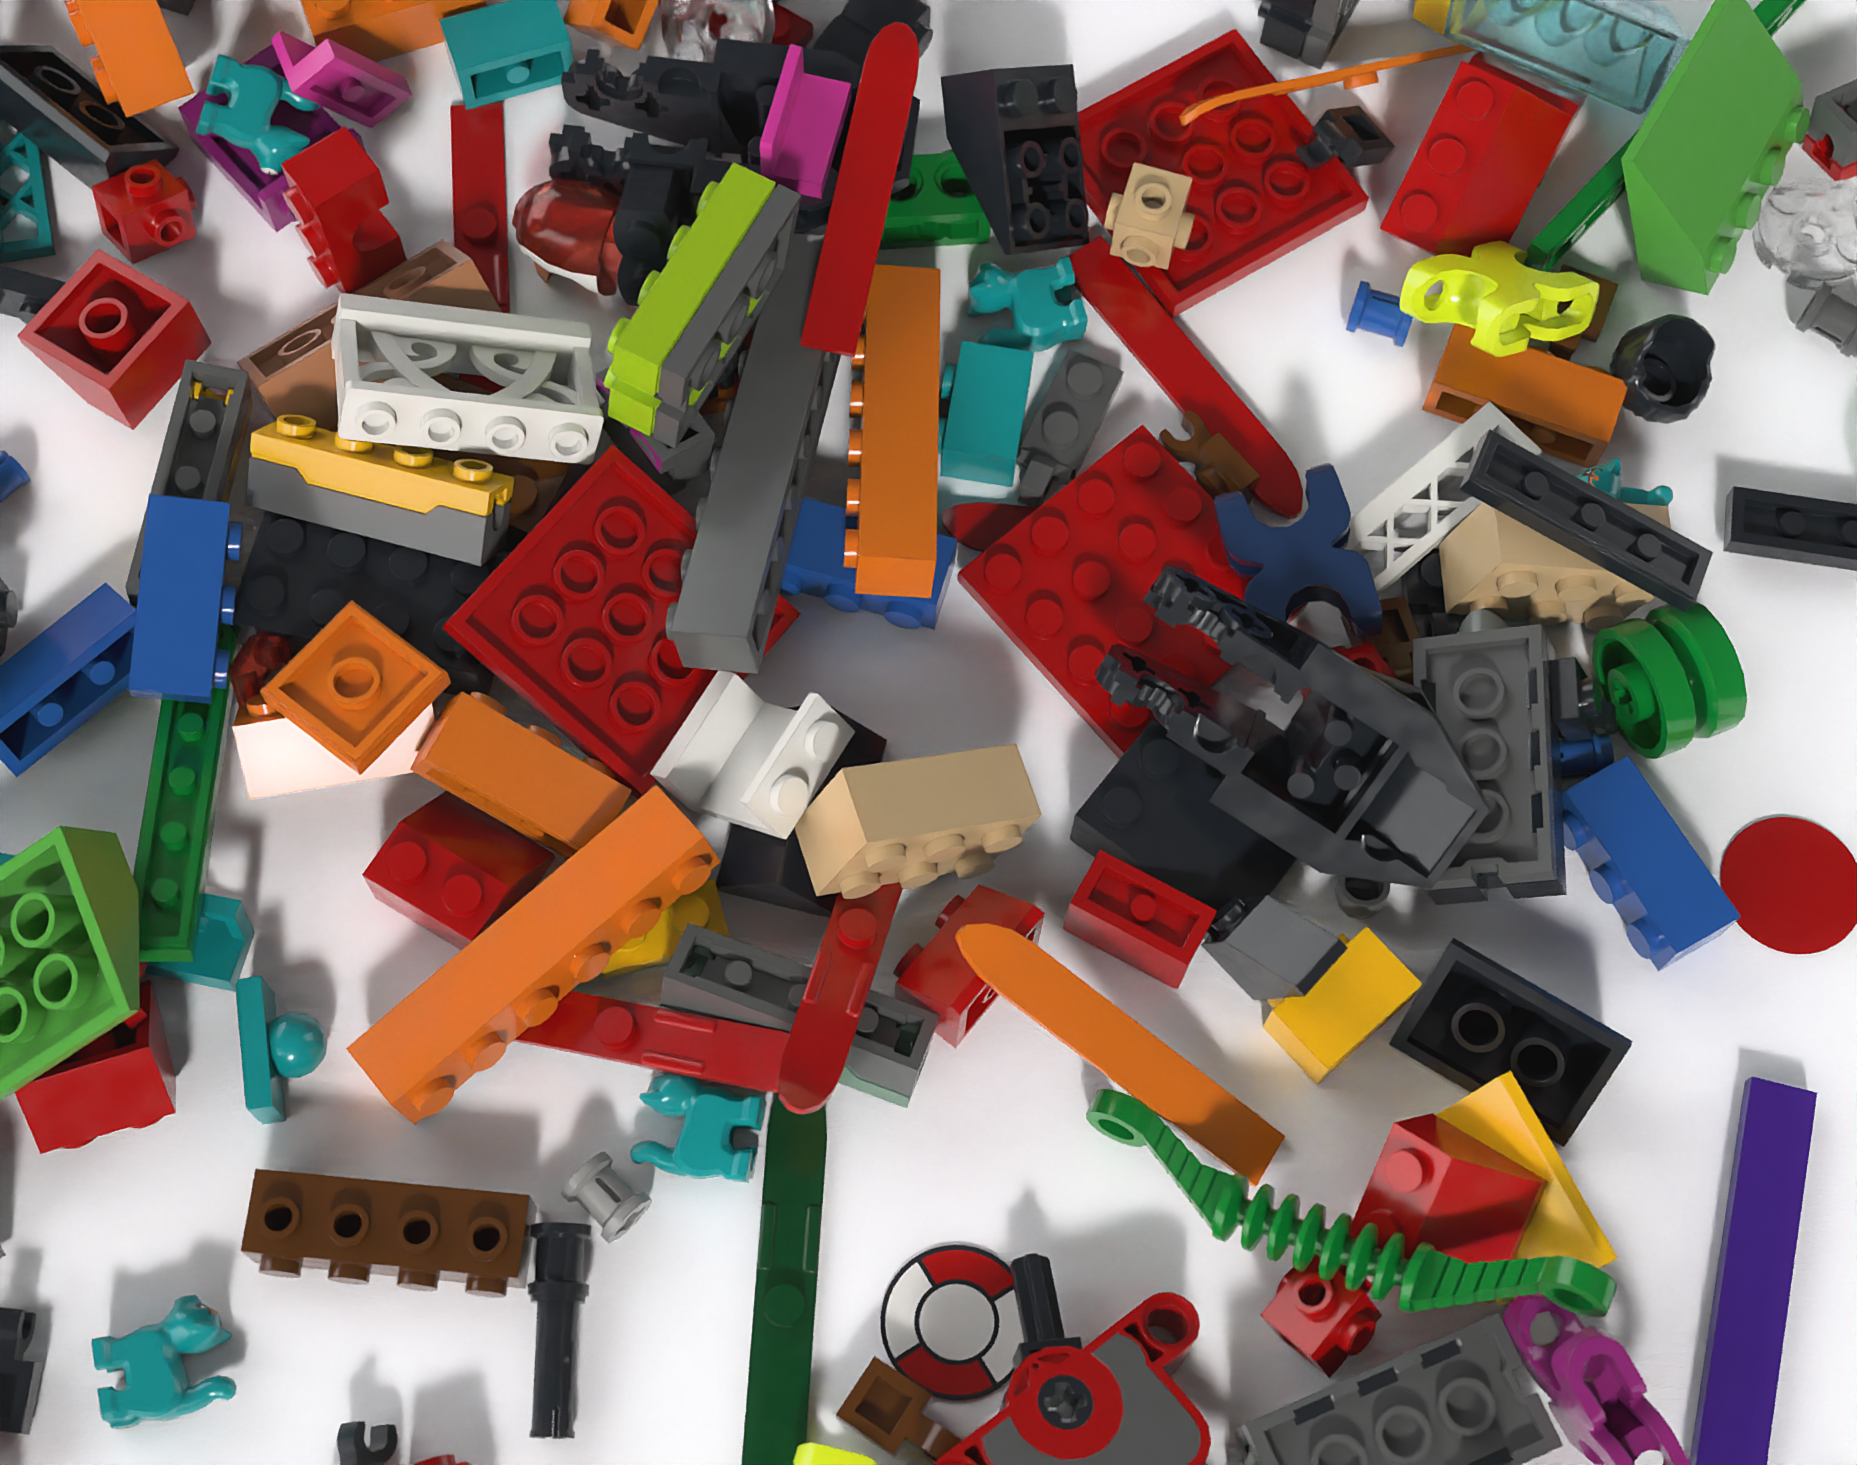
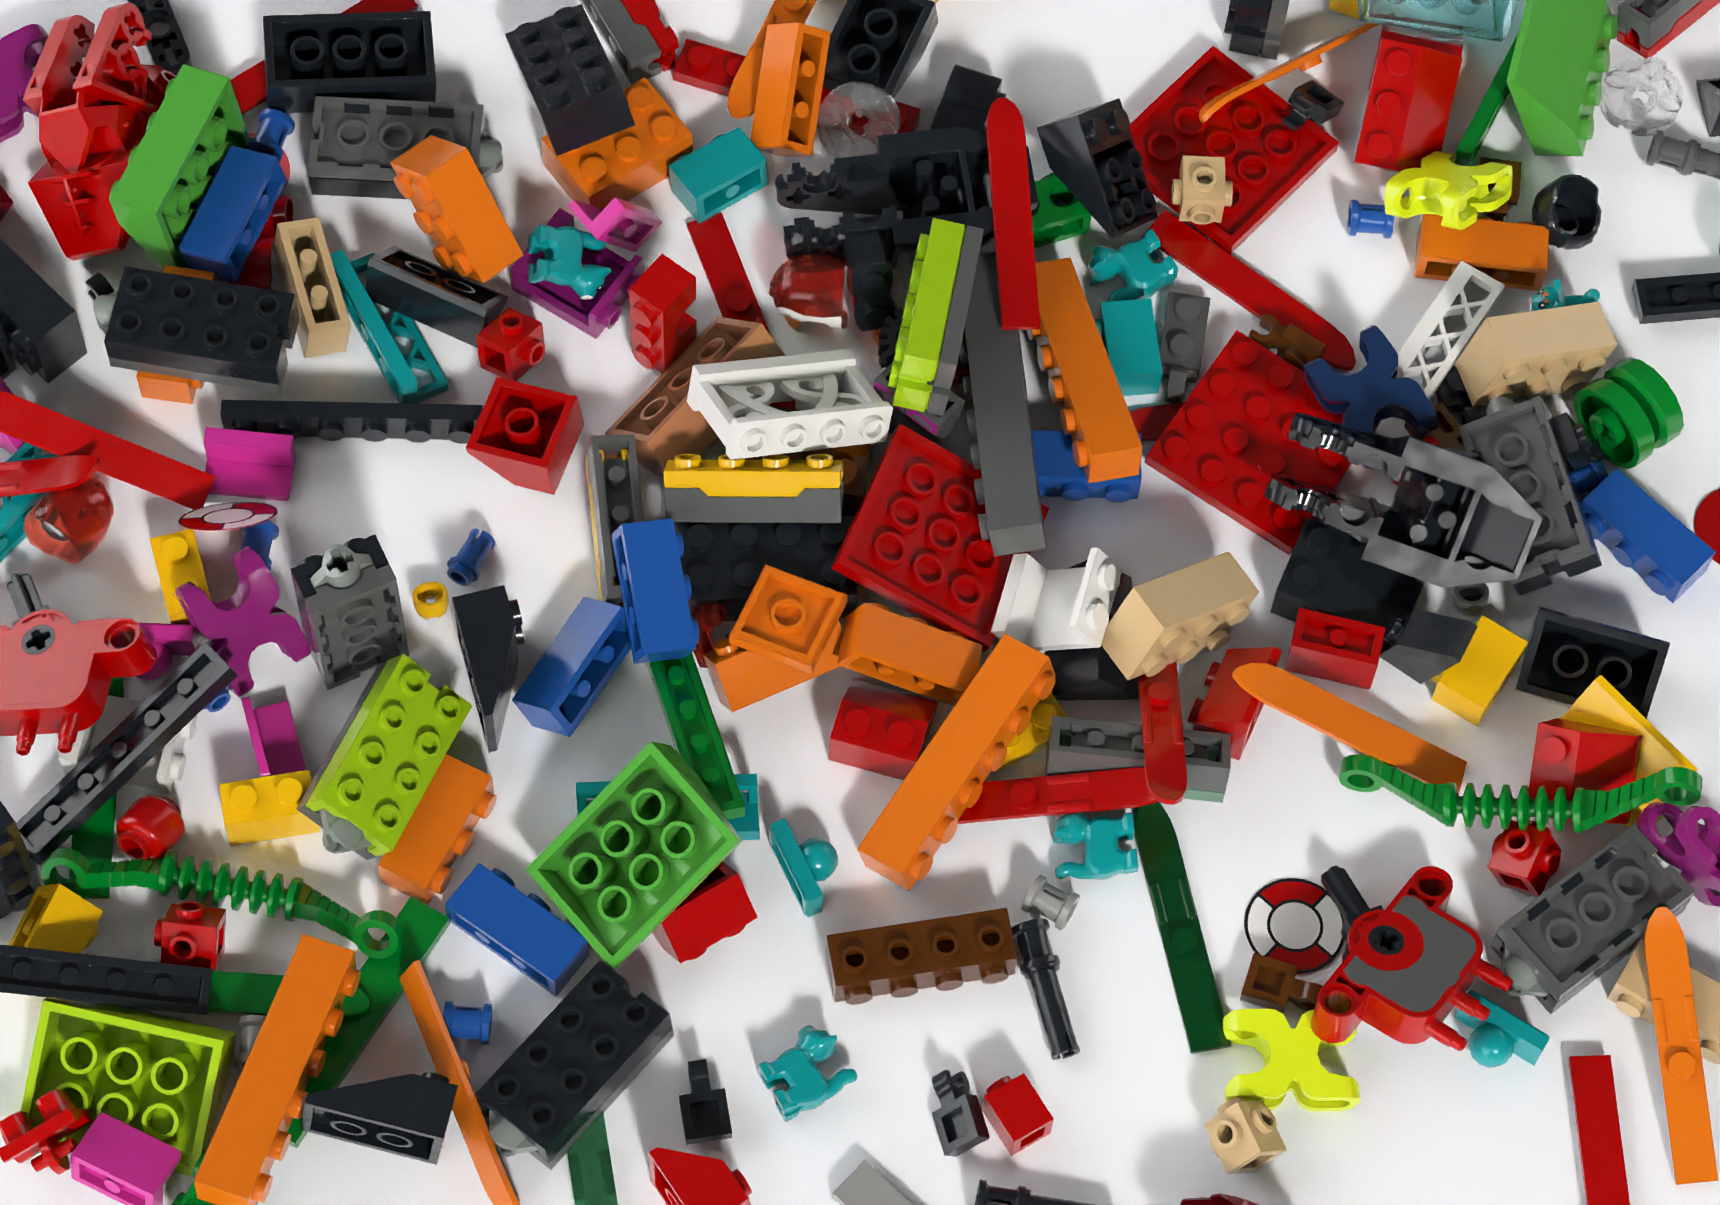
camera: 15 degrees left, 5 degrees down
(803, 127) = (961, 183): dark pink panel -> none
(1586, 520) = (1550, 322): black tile -> none

